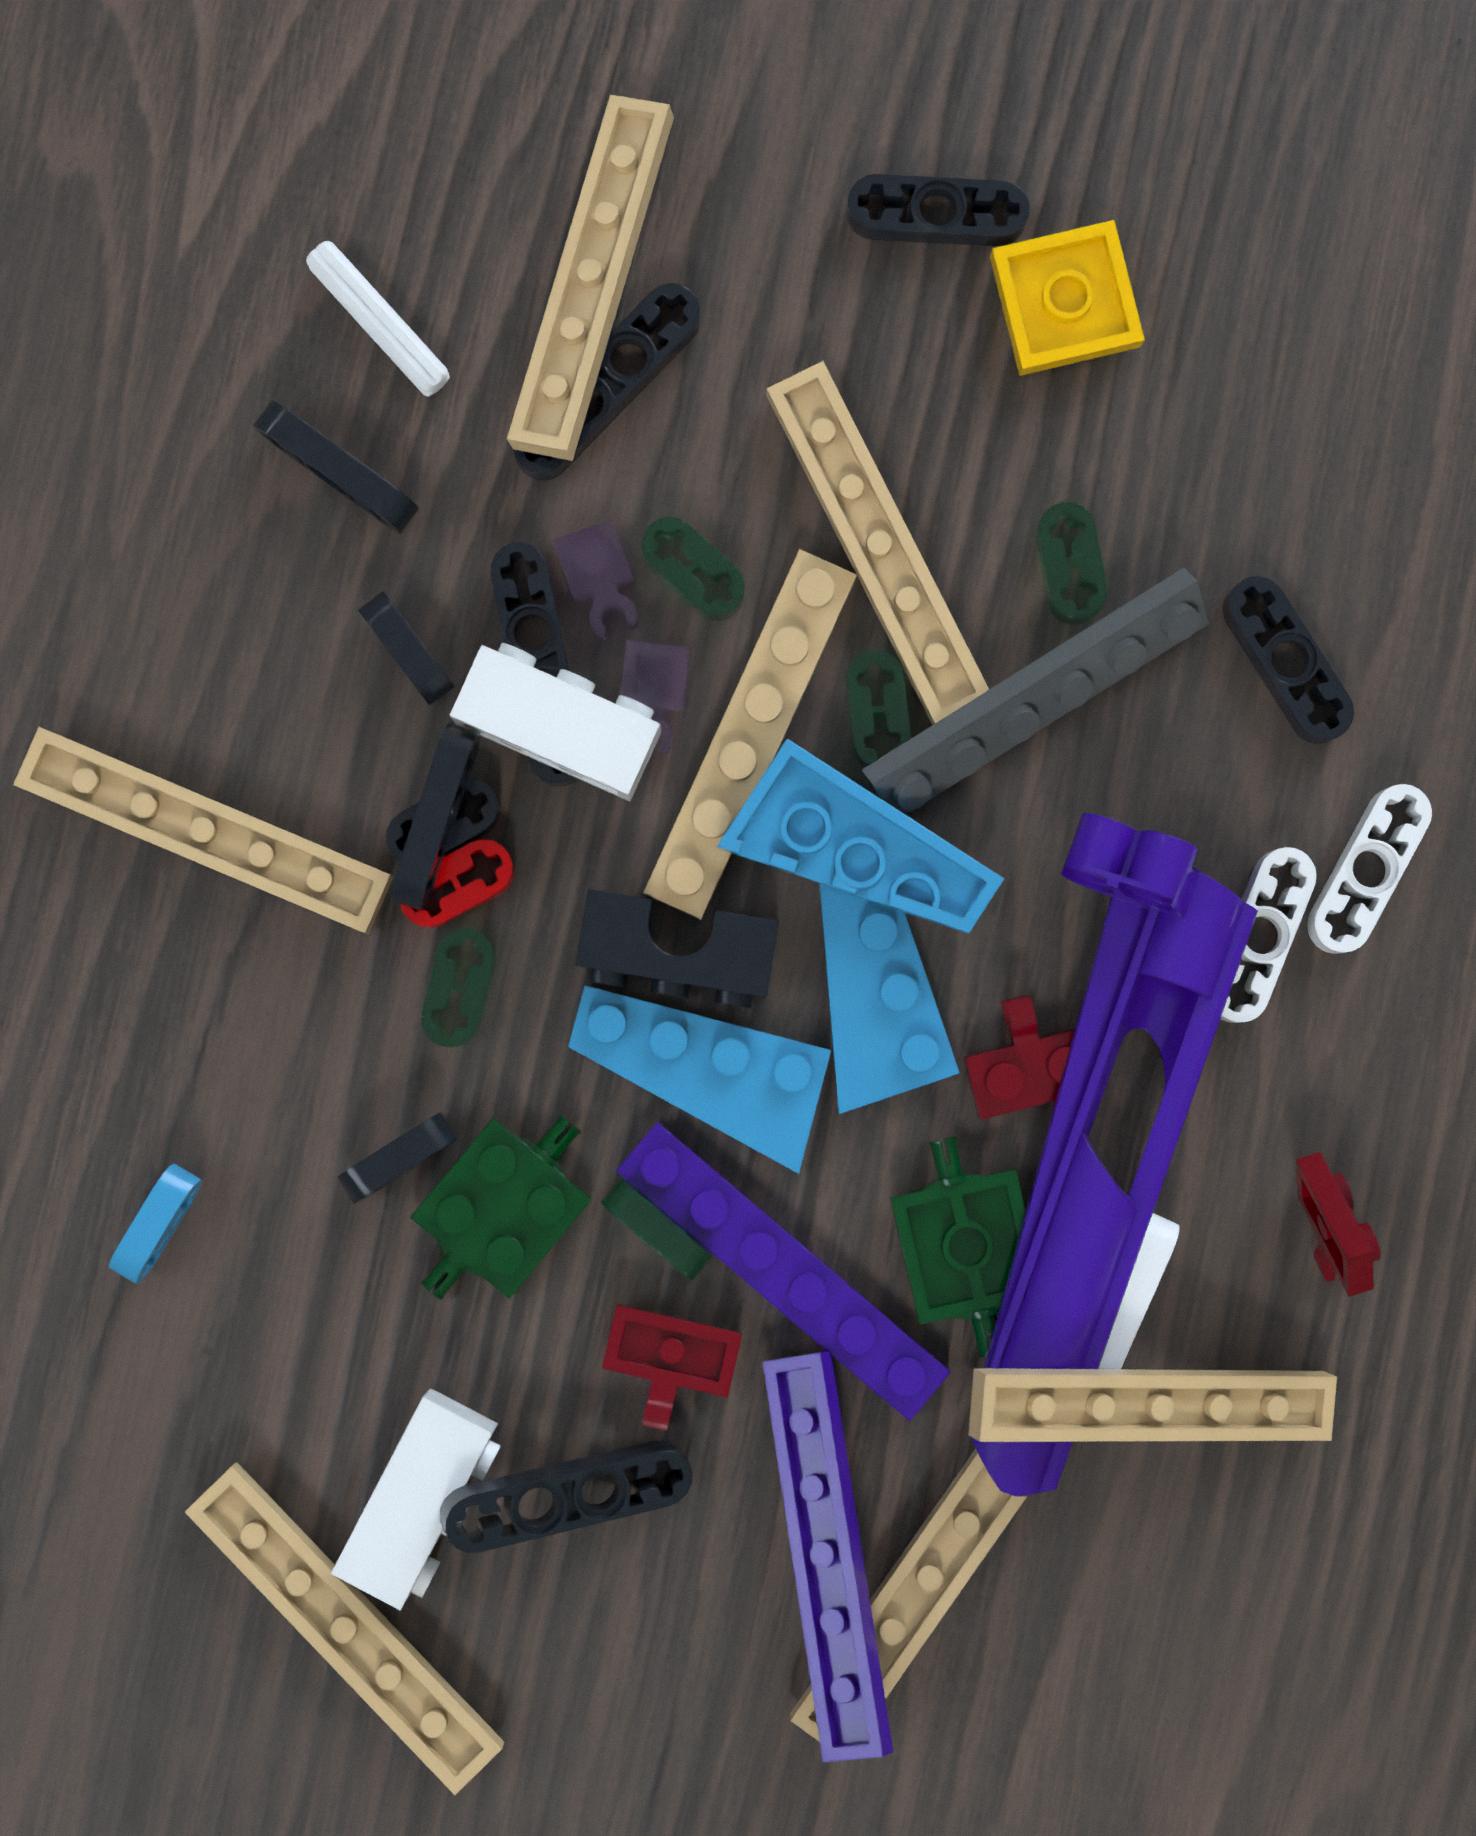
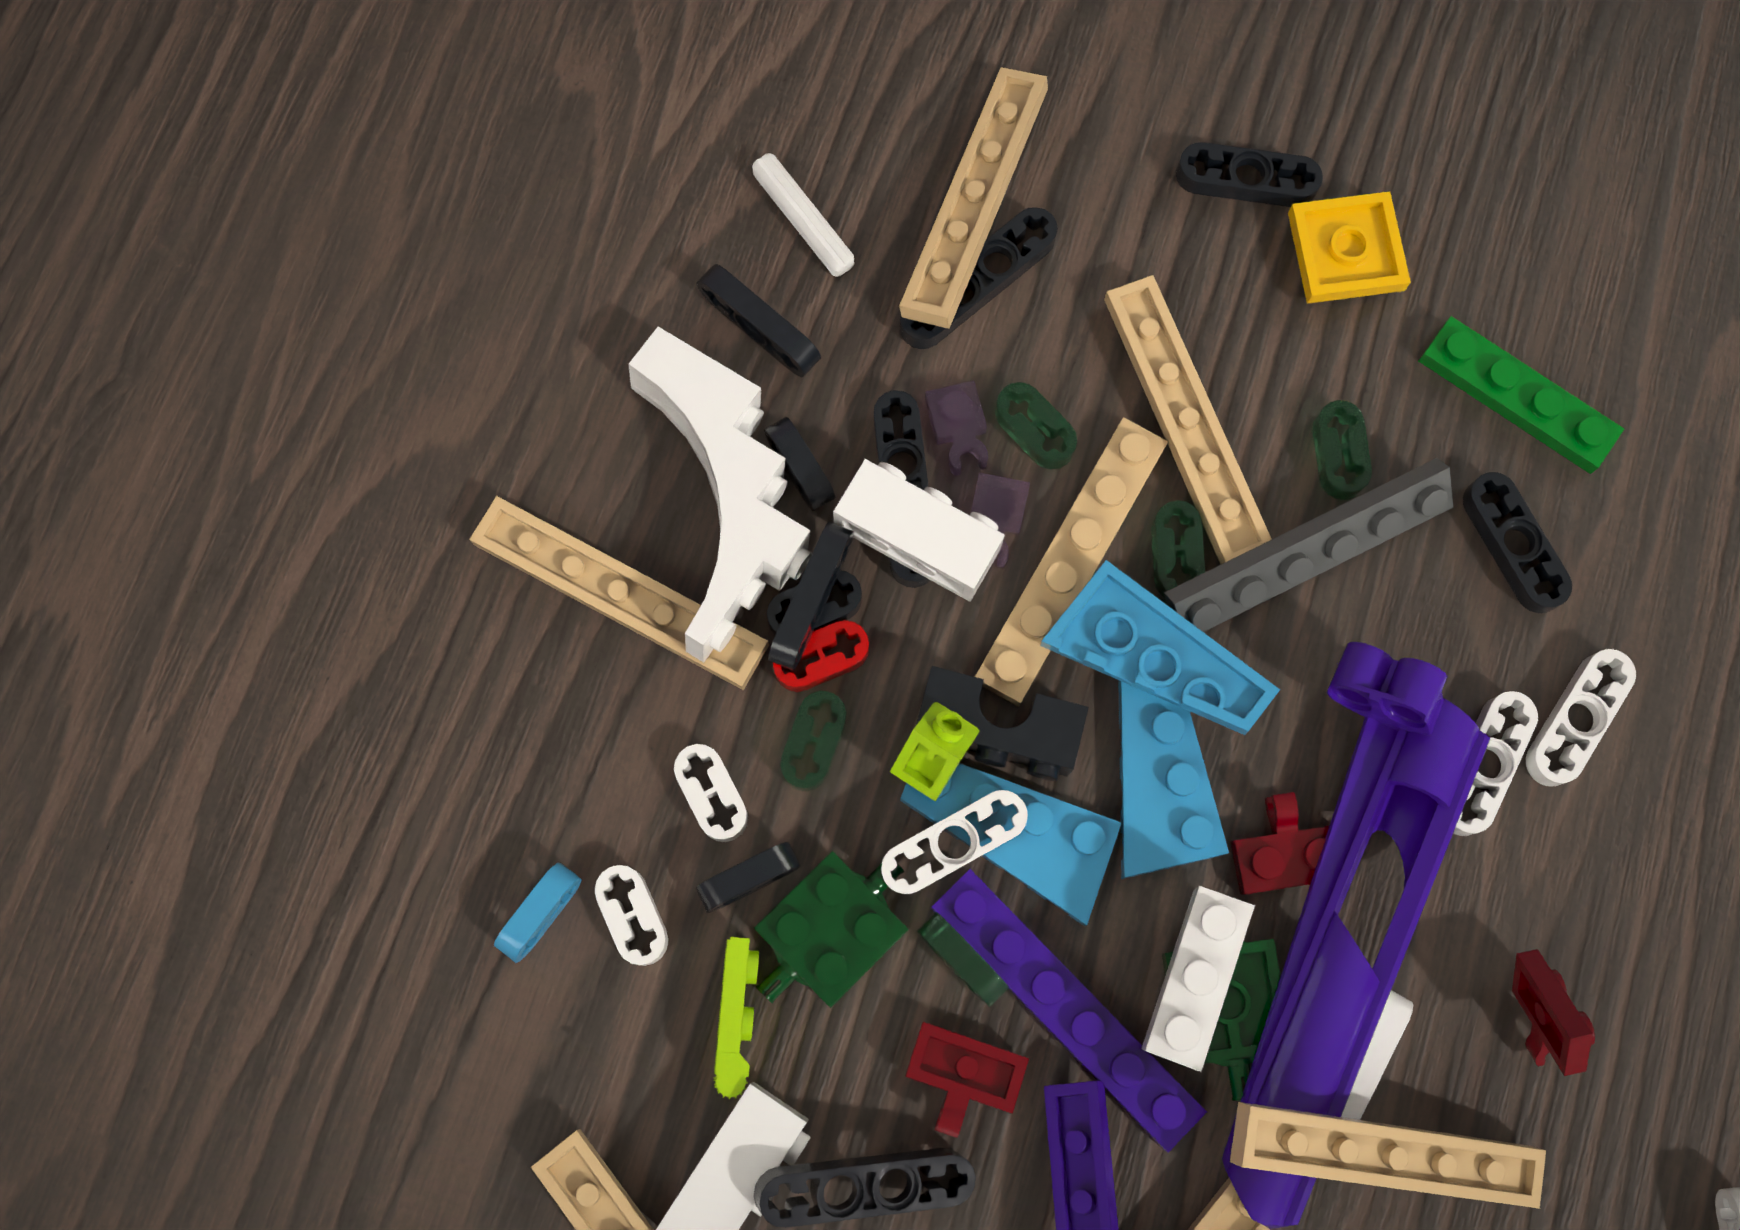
camera: 10 degrees right, 10 degrees down
(253, 1223) = (619, 921): none -> white beam
(330, 1070) = (699, 799): none -> white beam
(357, 754) = (718, 416): none -> white arch
(399, 1323) = (734, 1018): none -> lime hinge
(585, 1109) = (996, 834): none -> white beam
(600, 991) = (934, 750): none -> lime bracket
(925, 1229) = (1198, 978): none -> white brick
(1288, 470) = (1521, 395): none -> green plate

